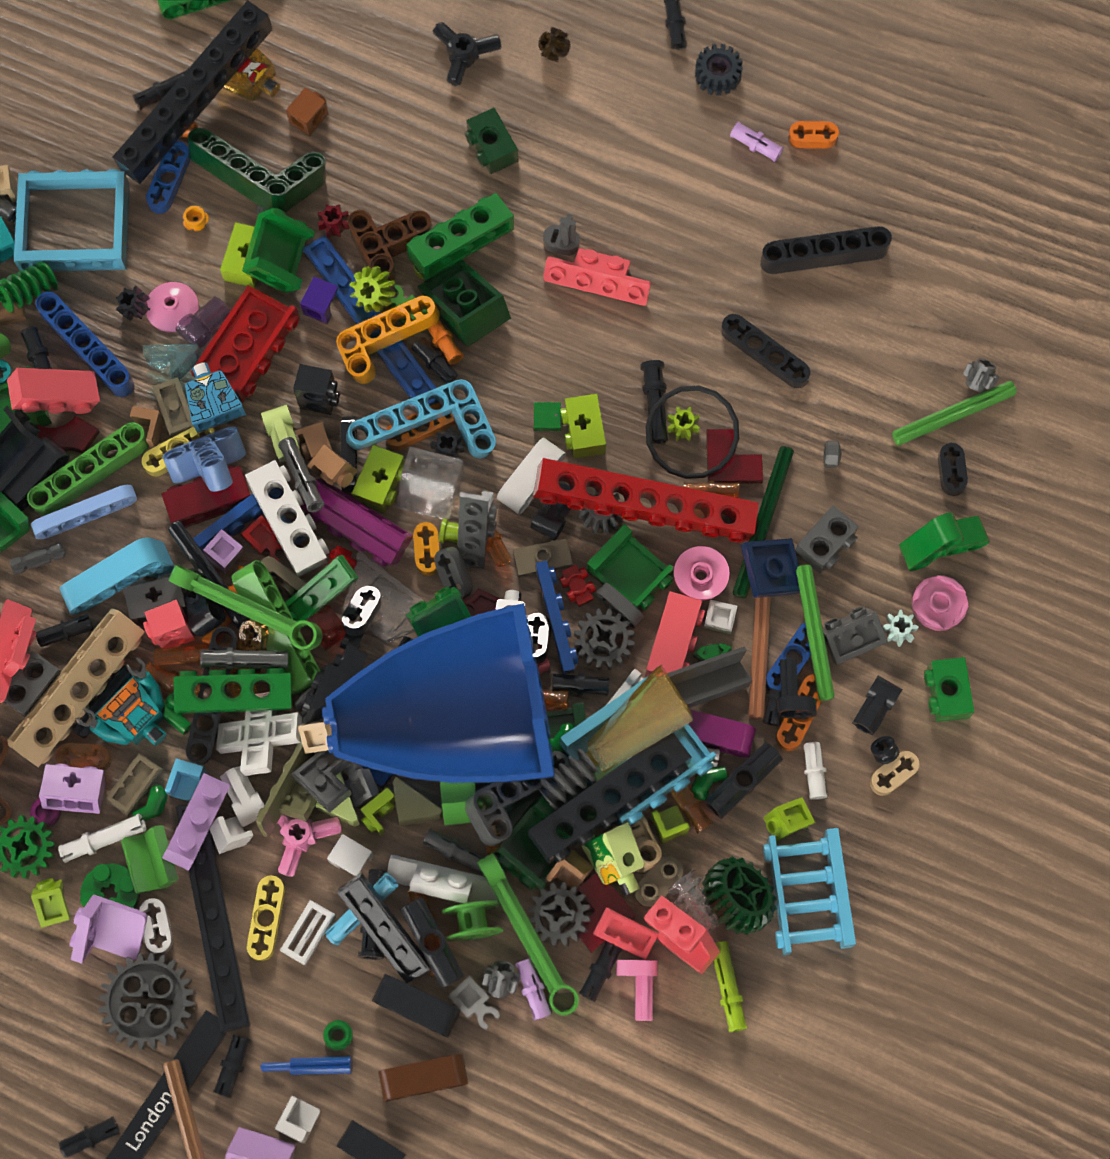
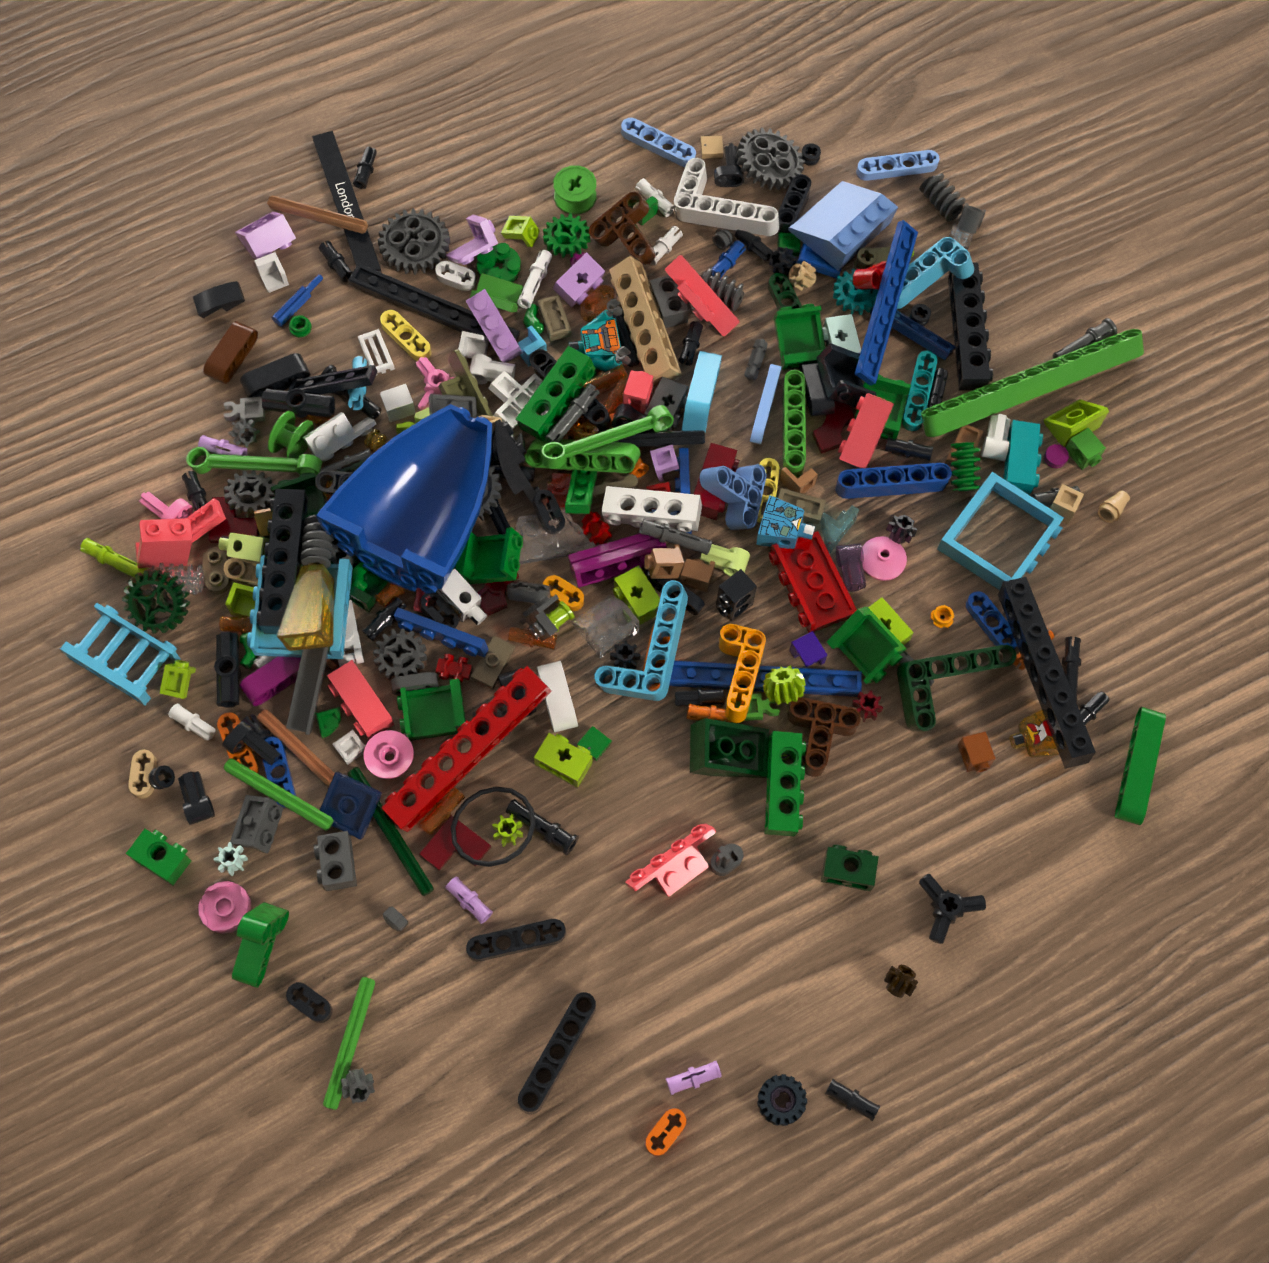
camera: 125 degrees right, 5 degrees down
(187, 49) = (1090, 710): none -> black axle
(408, 845) = (375, 440): none -> clear yellow bush
(765, 411) = (469, 900): none -> lavender pin

